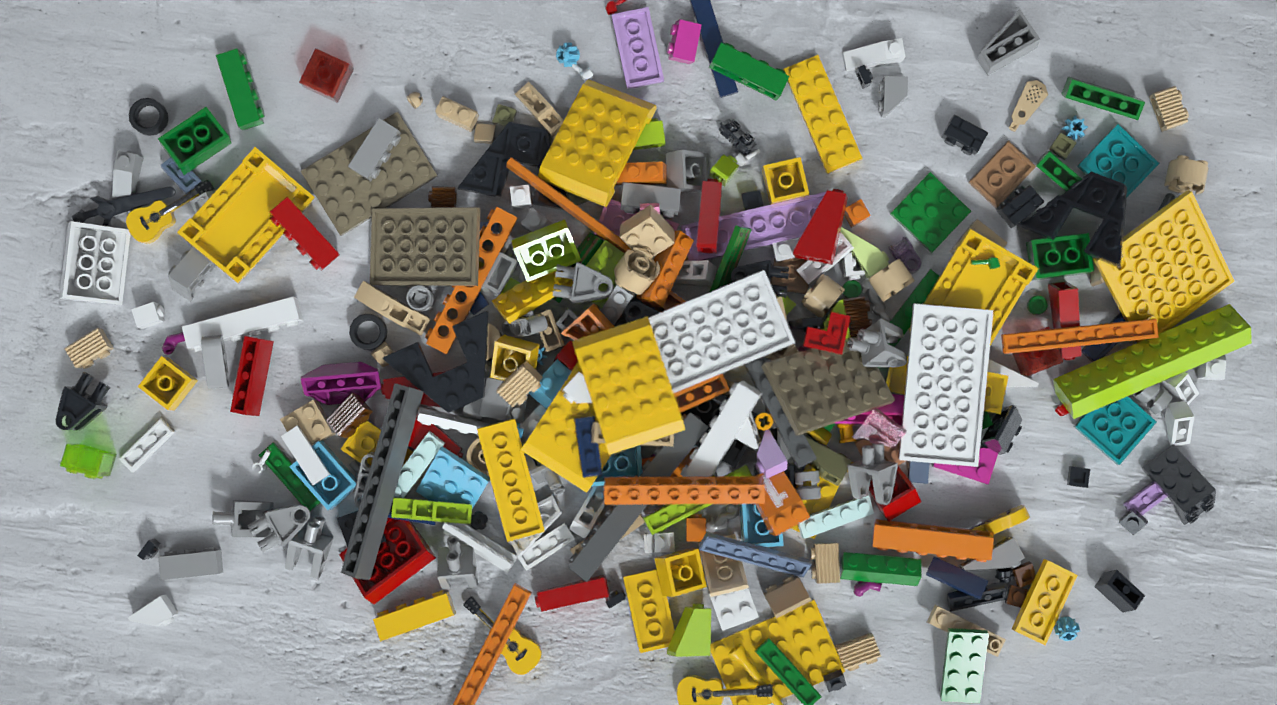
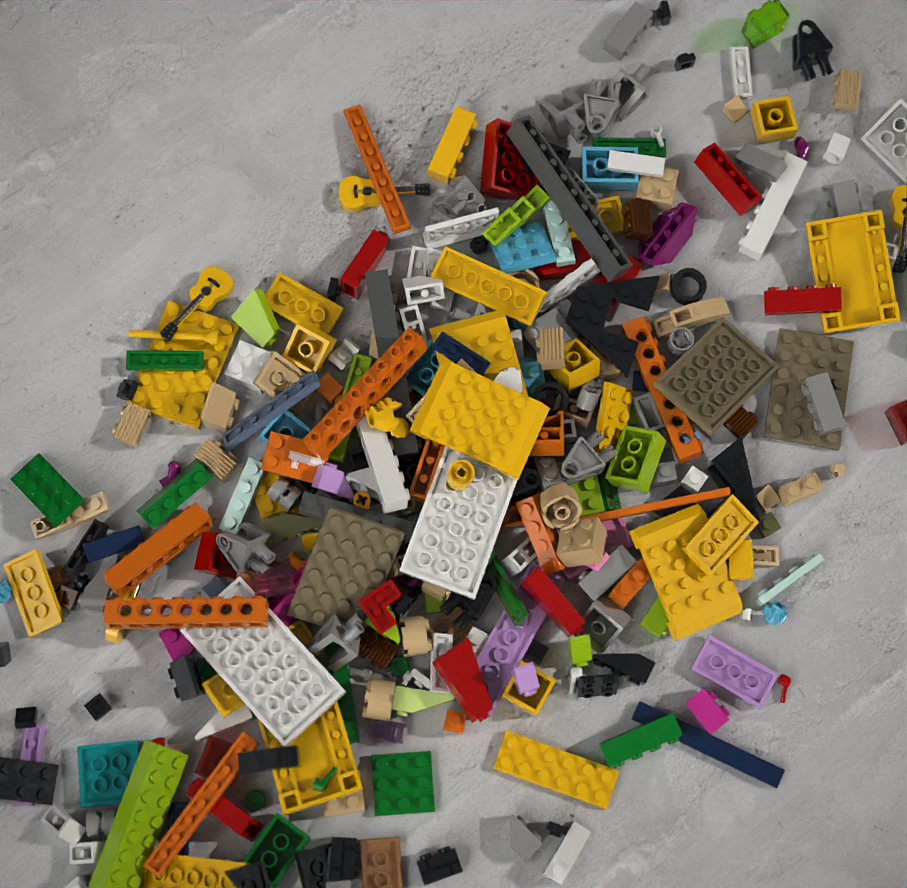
camera: 120 degrees right, 10 degrees down
(177, 497) = (684, 61): none -> black plate
(184, 422) = (734, 109): none -> tan slope
(525, 64) = (781, 583): none -> light aqua plate
(545, 356) = (551, 385): none -> black tyre
(549, 138) = (720, 535): none -> yellow plate
(552, 110) = (741, 562): none -> yellow slope
(557, 528) = (422, 289): none -> white slope
(685, 360) = (460, 475): none -> yellow wheel
(690, 459) = (384, 419): none -> yellow animal
(700, 124) = (630, 665): none -> black slope
(785, 185) = (526, 679): none -> lavender slope
(1009, 313) = (269, 759): none -> black slope
(1013, 521) = (195, 619): none -> orange brick

